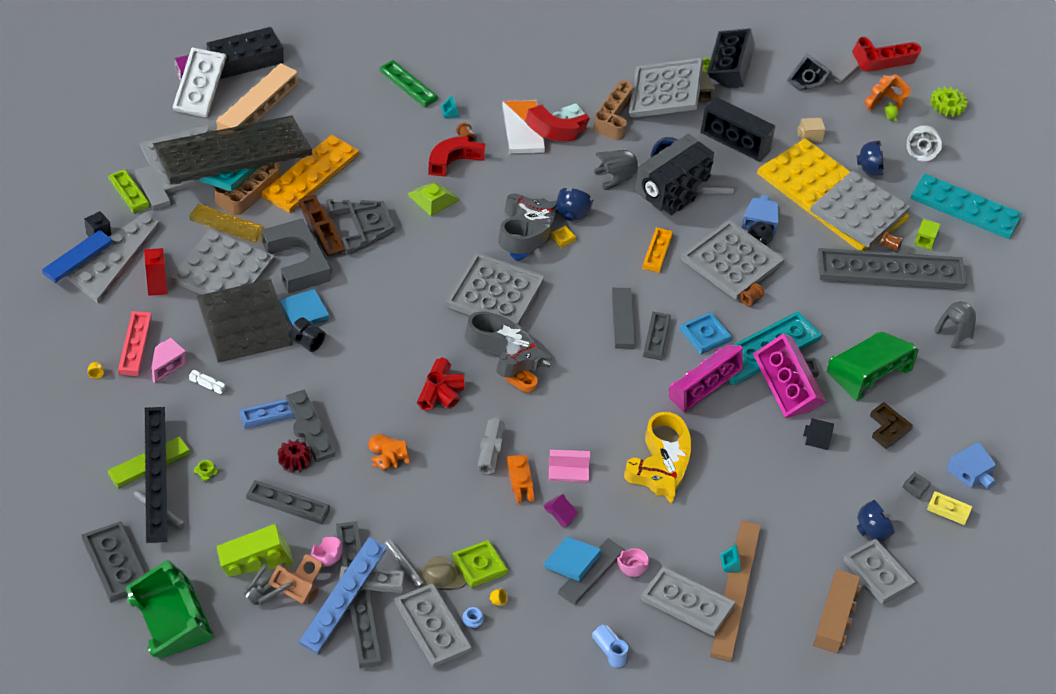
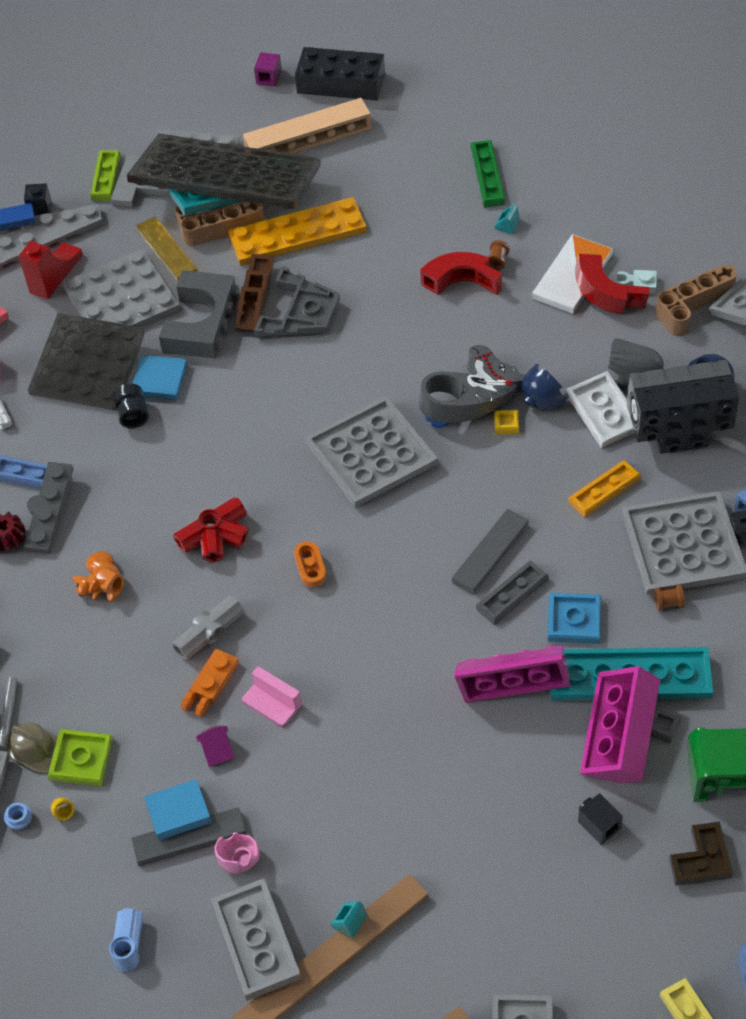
camera: 45 degrees right, 5 degrees up
(199, 82) = (262, 87): white tile -> none
(433, 197) = (401, 314): lime slope -> none
(514, 344) = (331, 520): dark grey animal -> none
(618, 202) = (602, 408): none -> white tile
(668, 462) = (381, 760): yellow animal -> none
(873, 522) = (565, 973): dark blue cylinder -> none
(916, 485) = (671, 955): dark grey plate -> none

